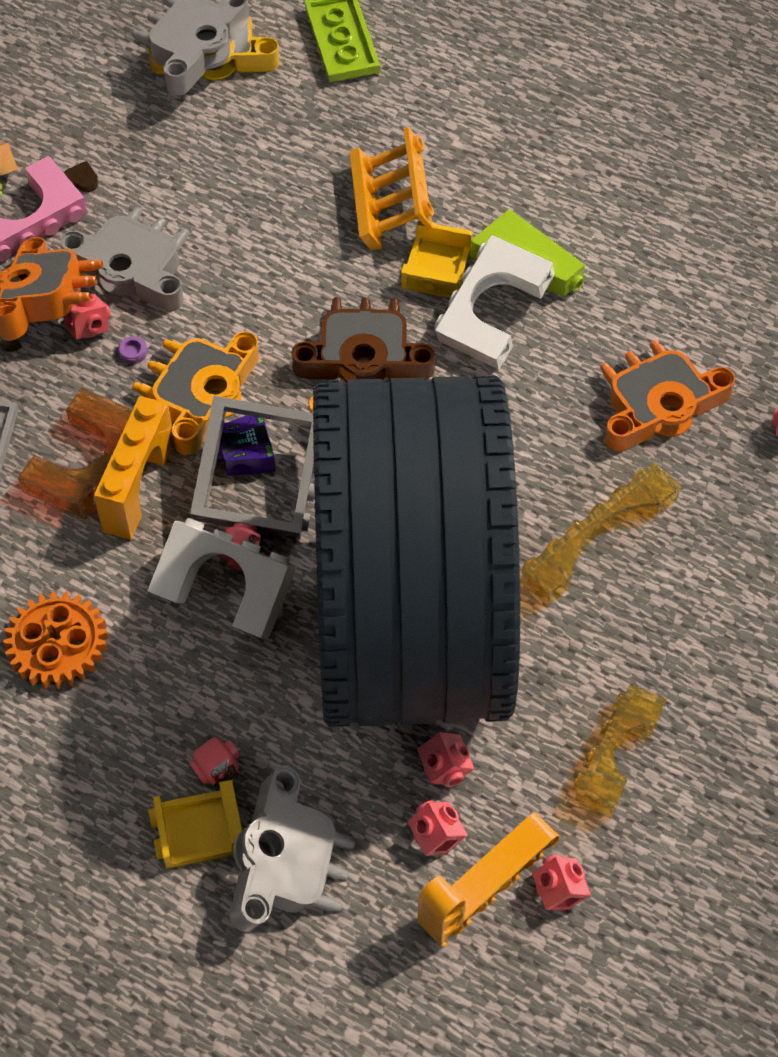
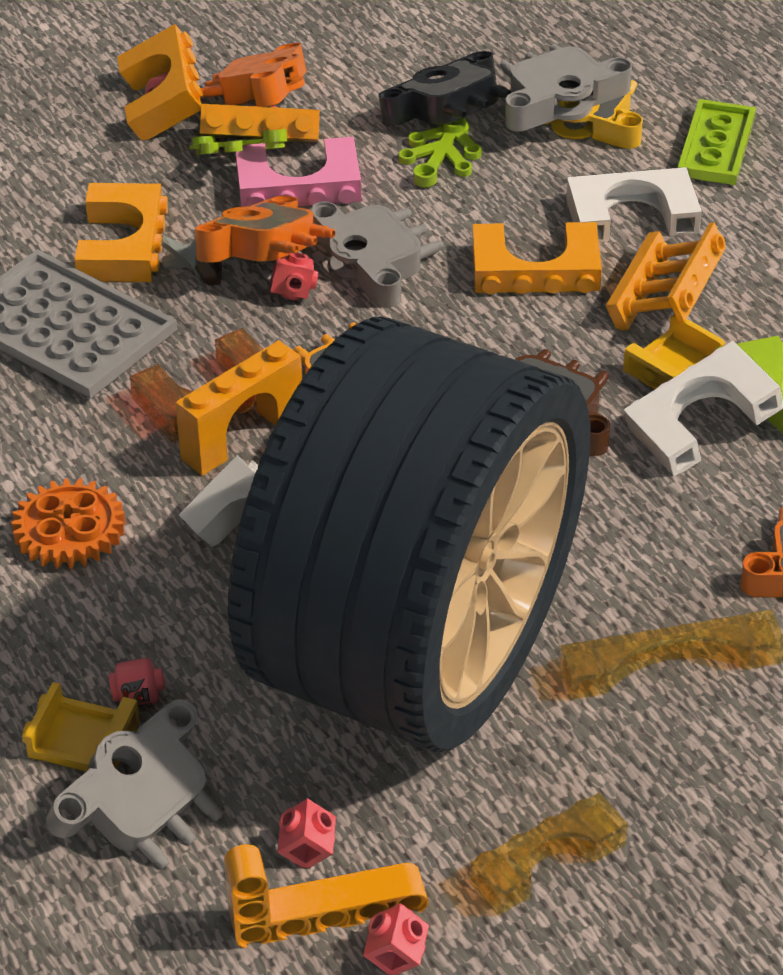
camera: 30 degrees right, 15 degrees down
(83, 177) = (376, 170): dark brown tile -> none
(103, 84) = (465, 89): none -> black piece
(122, 133) = (426, 174): none -> lime plant
(132, 350) = (319, 323): medium lavender tile -> none
(250, 237) = (501, 272): none -> light orange arch
(331, 101) = (664, 189): none -> white arch
(445, 759) = (360, 778): coral brick -> none

